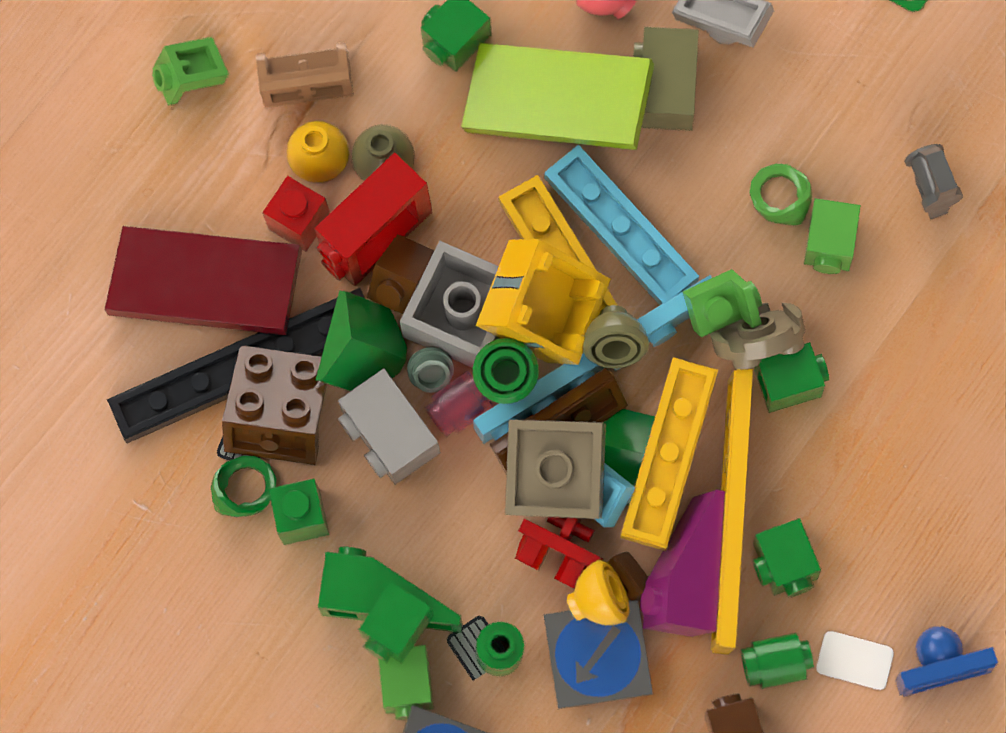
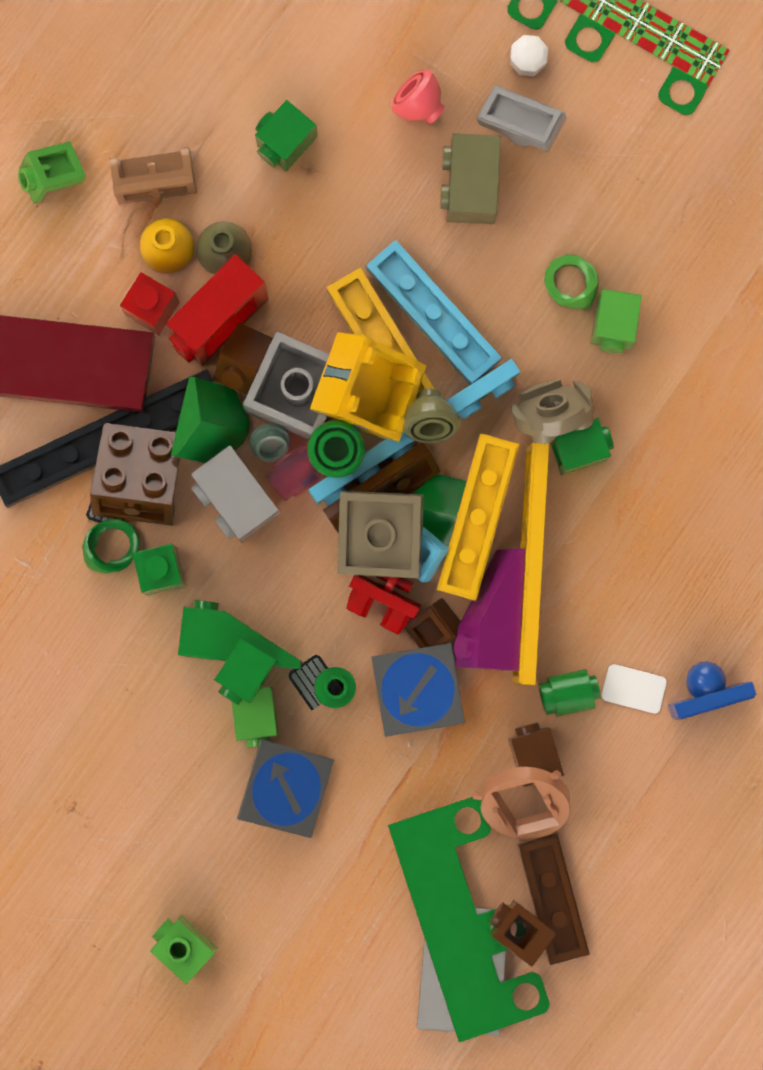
camera: 15 degrees left, 10 degrees up
(558, 96) = (377, 196): lime tile -> none
(599, 596) = (419, 642): yellow brick -> none
(722, 302) = (522, 383): bright green bracket -> none
(786, 559) = (577, 606): green brick -> none
(934, 179) = (705, 270): dark grey piece -> none

